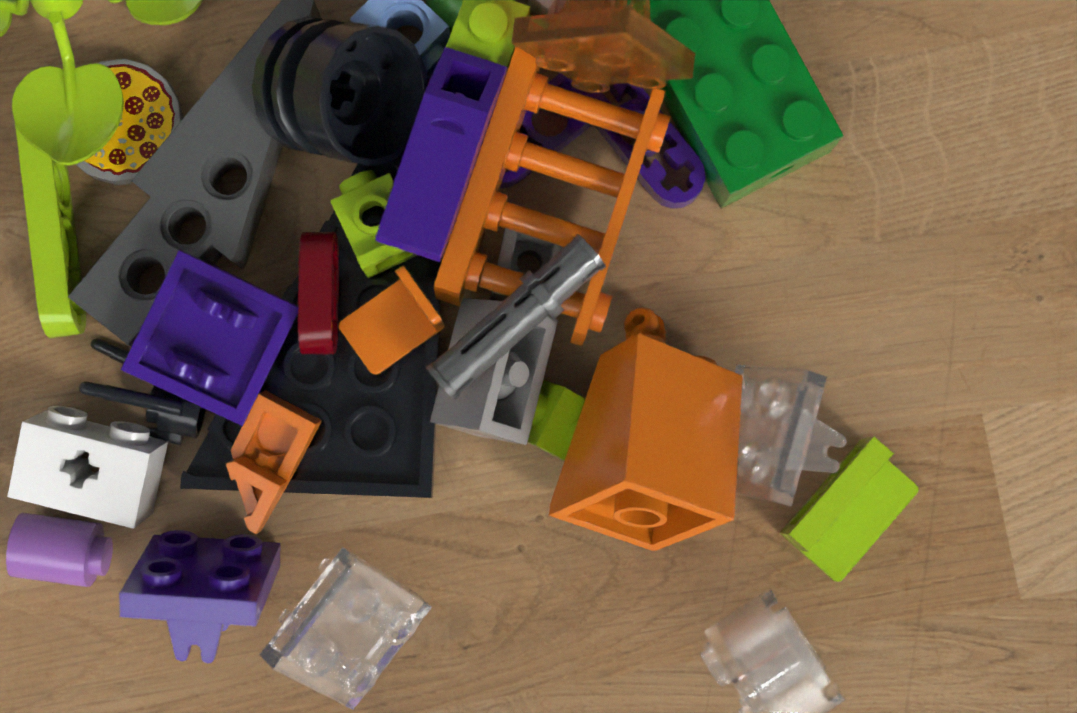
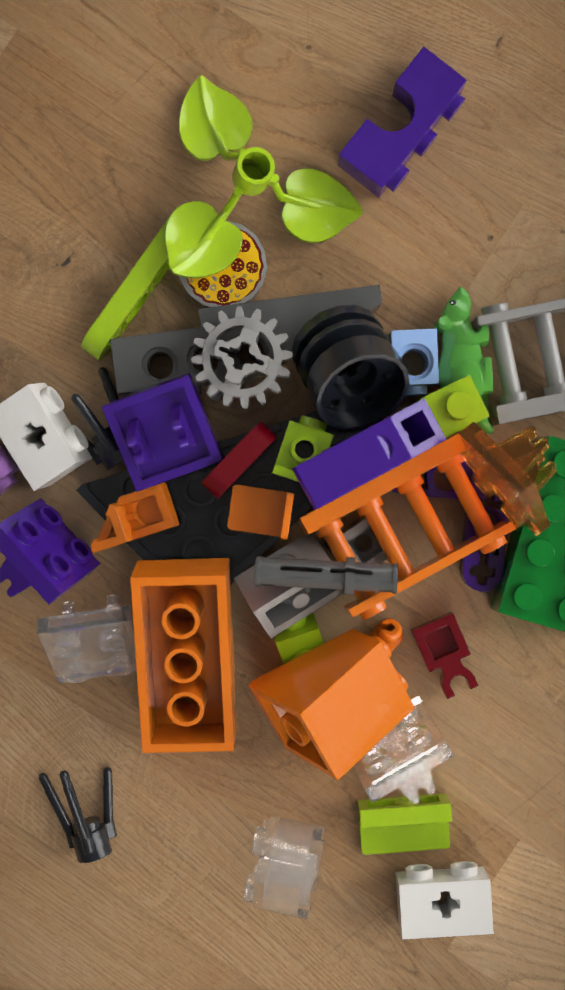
camera: 45 degrees right, 5 degrees up
(195, 190) = (248, 338): none -> light grey gear
(452, 547) = (184, 655): none -> orange brick
(712, 289) = (443, 647): none -> dark red plate
(1000, 539) = (466, 908): none -> white brick

